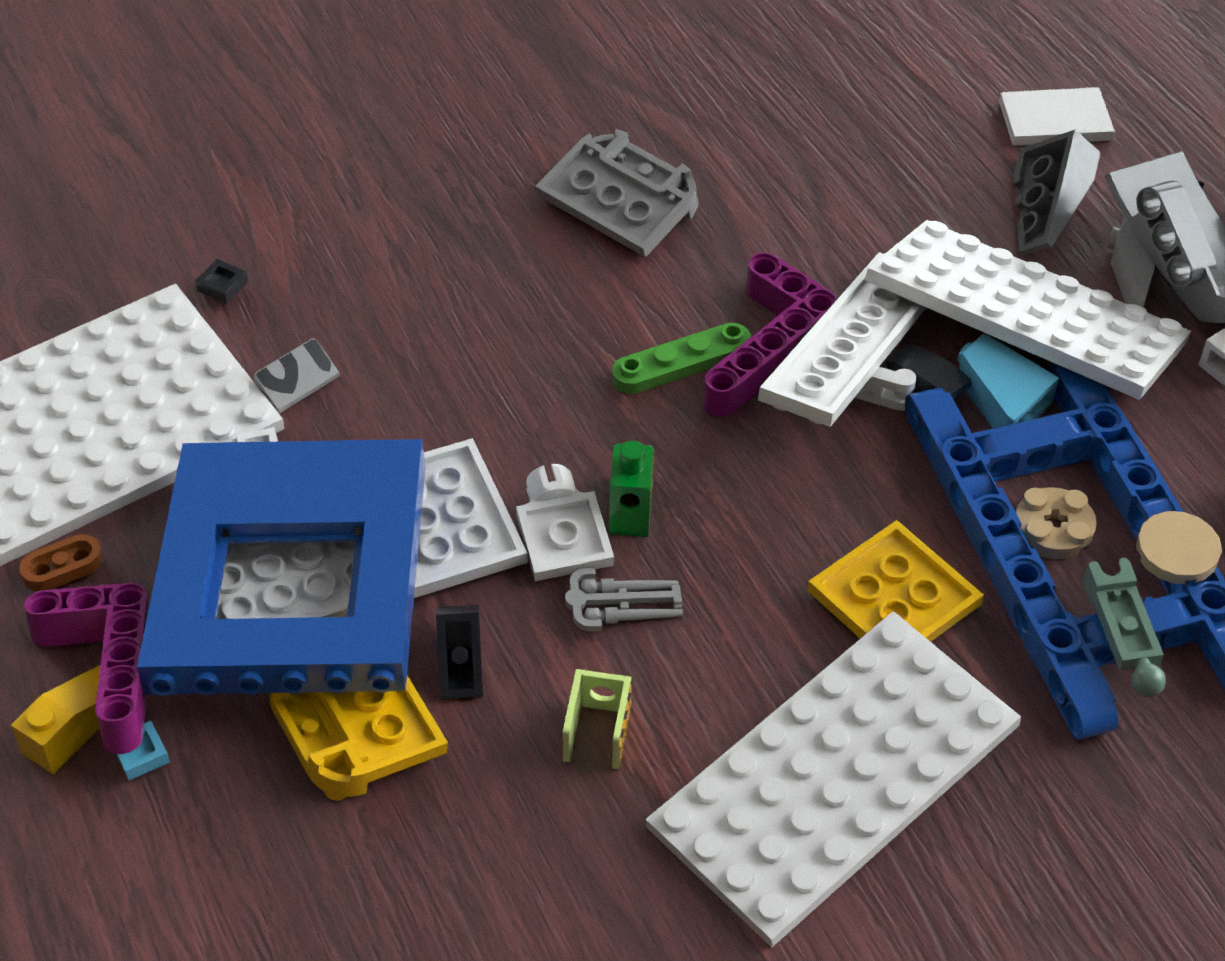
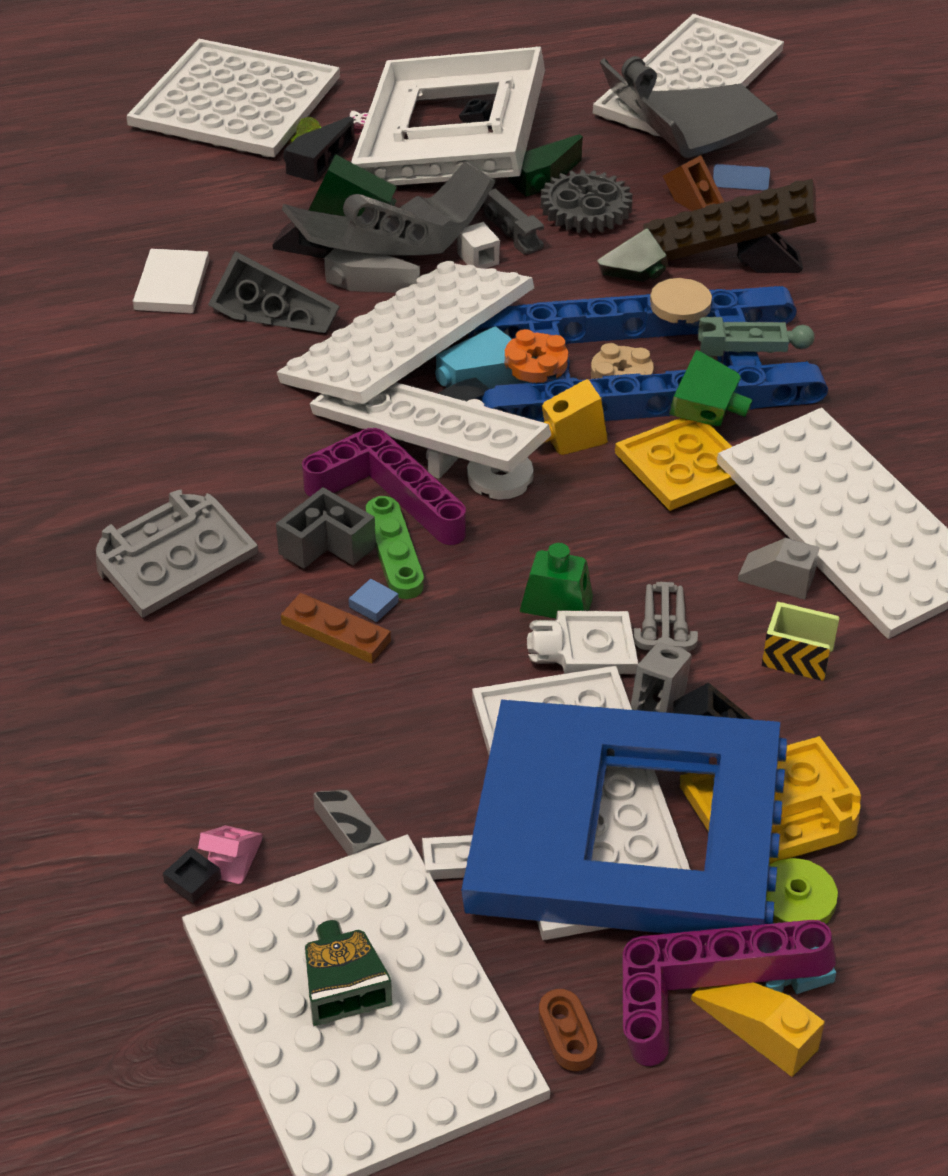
camera: 80 degrees left, 5 degrees down
(96, 381) = (344, 974): none -> dark green torso
(240, 759) = (816, 896): none -> lime plate
(251, 296) = (231, 850): none -> bright pink slope
(503, 588) = (663, 671): none -> light grey torso
(551, 331) = (336, 627): none -> dark orange plate
(596, 353) = (373, 600): none -> medium blue tile
(673, 289) = (323, 525): none -> dark grey brick
(723, 705) = (782, 567): none -> light grey slope
(831, 446) = (498, 487): none -> white tile
(916, 473) = (575, 419): none -> yellow torso
(996, 585) = (708, 392): none -> green torso
(1003, 398) = (548, 348): none -> orange plate

